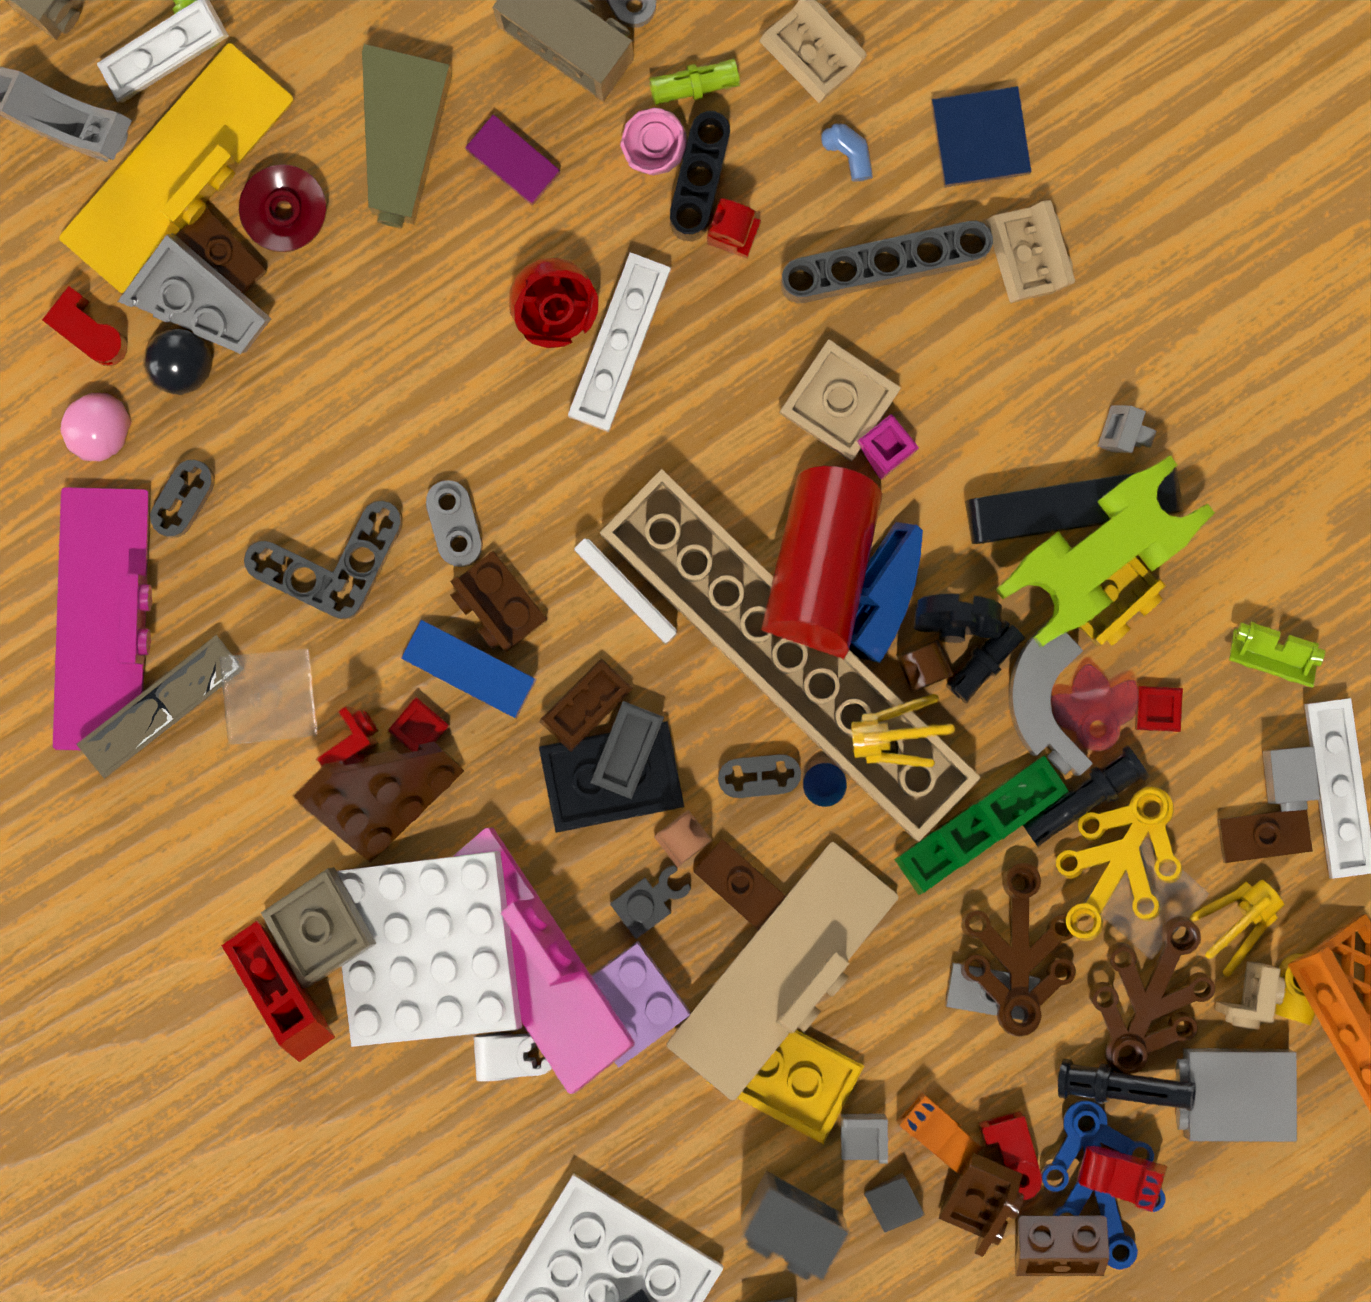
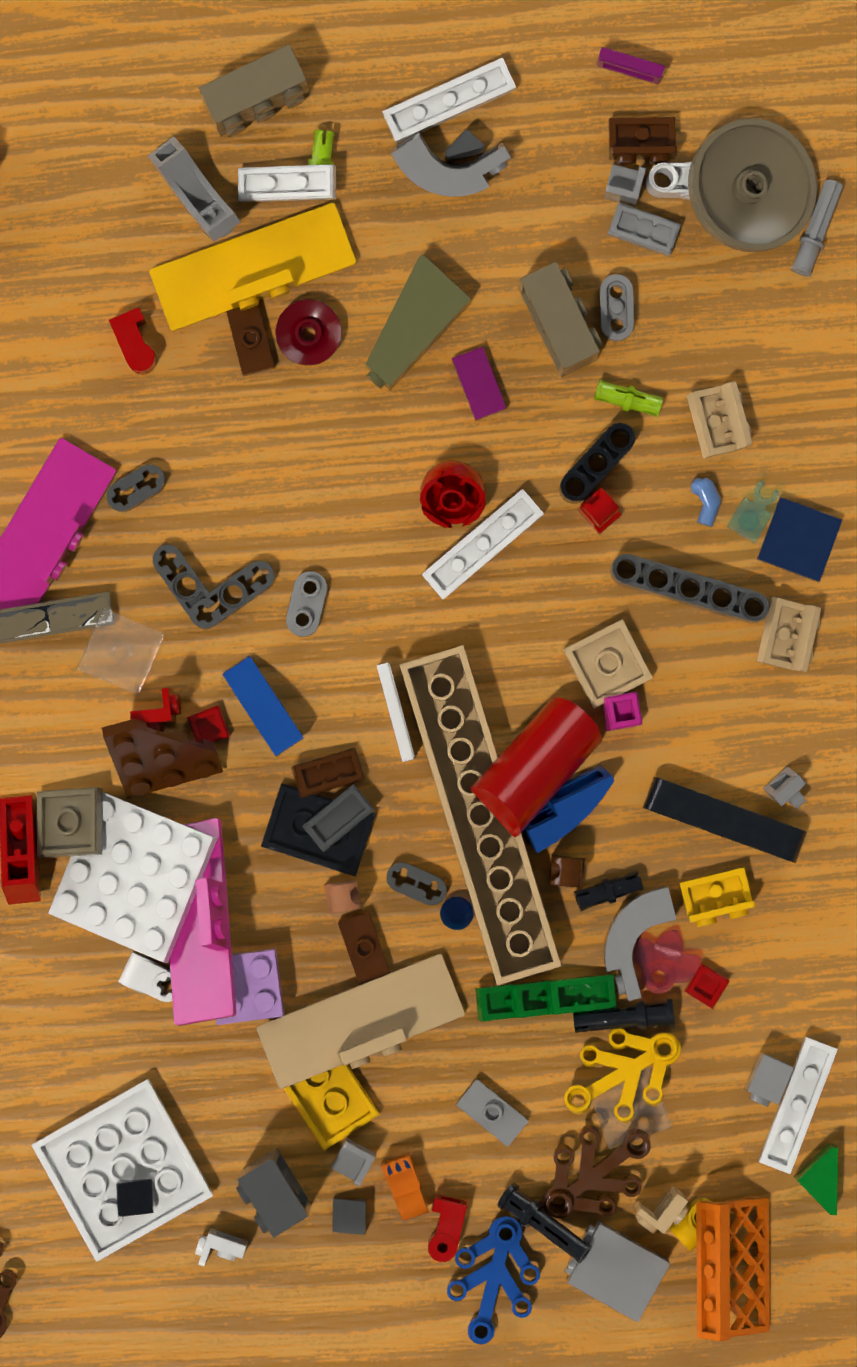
camera: 30 degrees right, 0 degrees up
(95, 426) = (104, 408): bright pink hair -> none
(177, 361) = (182, 395): black hair -> none
(192, 294) = (217, 357): light grey wing -> none
(498, 602) = (307, 672): reddish brown bracket -> none
(644, 905) = (292, 926): dark grey plate -> none
(653, 141) = (579, 423): bright pink hair -> none
(872, 738) = (504, 900): yellow plant -> none
(911, 140) = (752, 517): none -> clear light blue plate
(956, 618) = (605, 852): black plate -> none
(983, 1201) = (409, 1245): reddish brown bracket -> none
(1018, 956) = (521, 1099): reddish brown plant -> none
(1062, 1246) = (444, 1305): reddish brown bracket -> none
(1122, 1176) = (510, 1281): red leg -> none
(1134, 529) = (753, 857): lime piece -> none
(1257, 906) = (699, 1153): yellow plant -> none
(1259, 649) = (795, 984): lime hinge -> none
(1264, 835) = (730, 1108): reddish brown plate -> none

